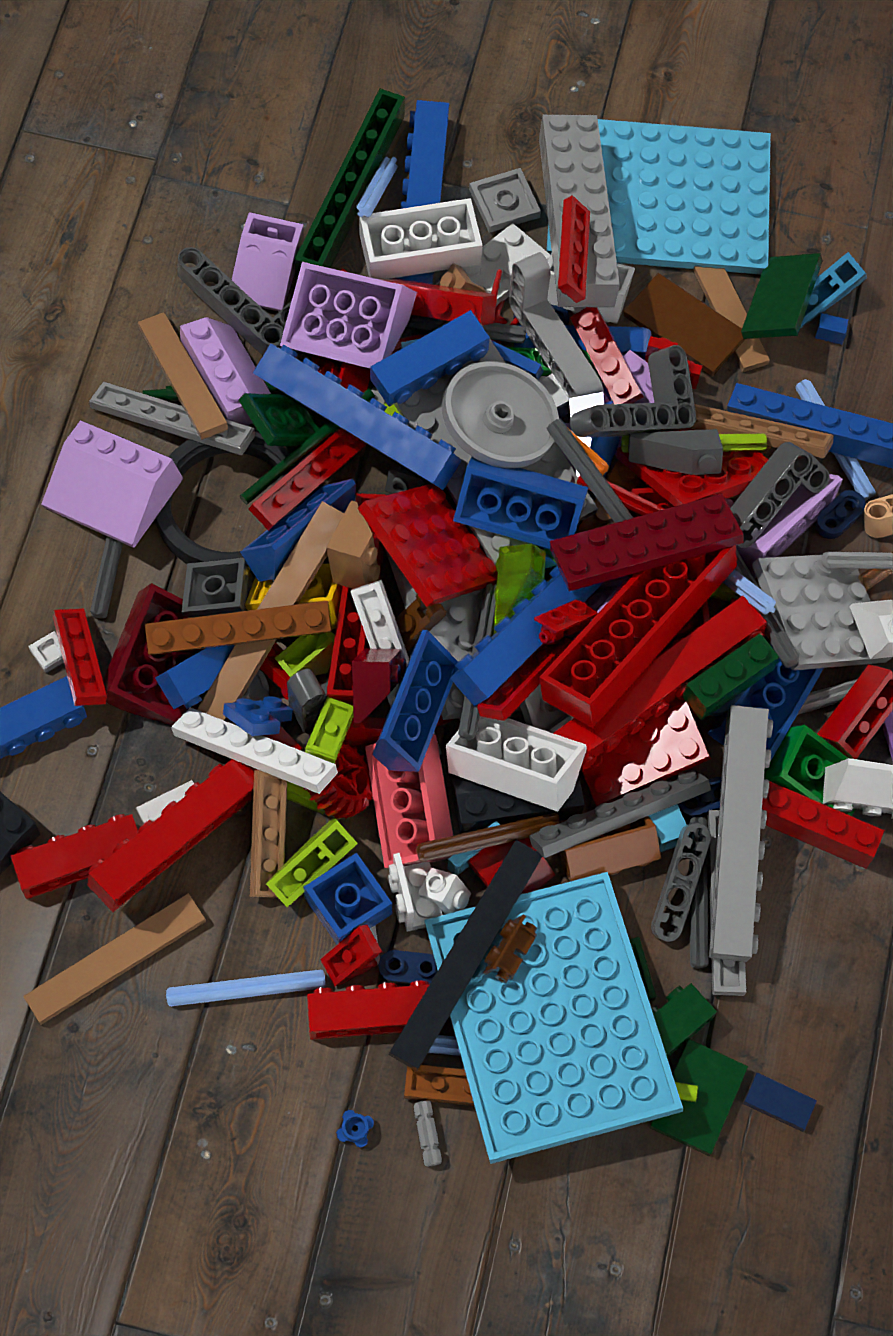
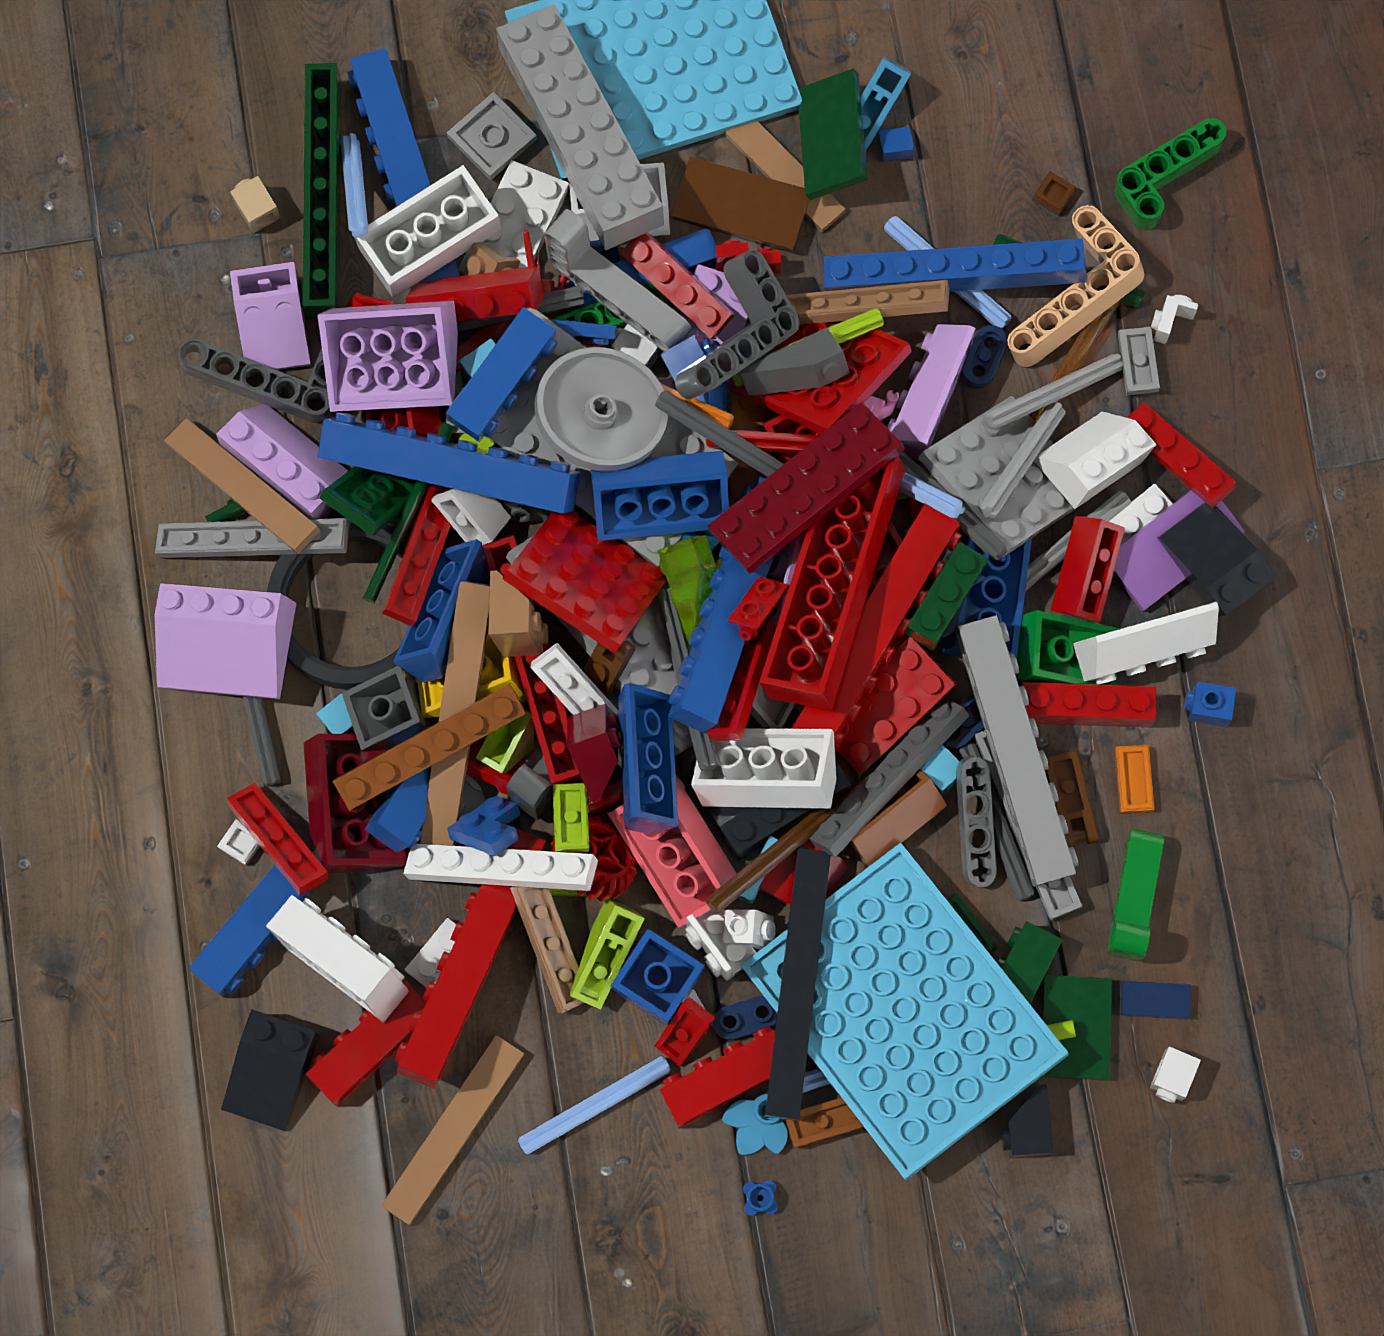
camera: 15 degrees left, 10 degrees up
(83, 769) = (339, 956): none -> white brick
(174, 581) = (336, 716): none -> medium azure tile
(293, 178) = (255, 204): none -> tan brick
(359, 463) = (472, 514): none -> white slope
(377, 1066) = (755, 1128): none -> dark azure plate
(427, 1133) = (831, 1173): light grey axle -> none
(515, 937) = (838, 949): reddish brown hinge -> none
(574, 249) = (601, 189): red plate -> none
(621, 1166) = (1030, 1128): none -> black slope
(771, 1174) = (1174, 1075): none -> white brick
(773, 897) = (1072, 795): none -> reddish brown plate
(774, 486) = (909, 370): dark grey beam -> none
(797, 1003) = (1135, 896): none -> green beam
(834, 905) = (1134, 779): none -> orange tile
(839, 600) = (1022, 460): none -> light grey axle

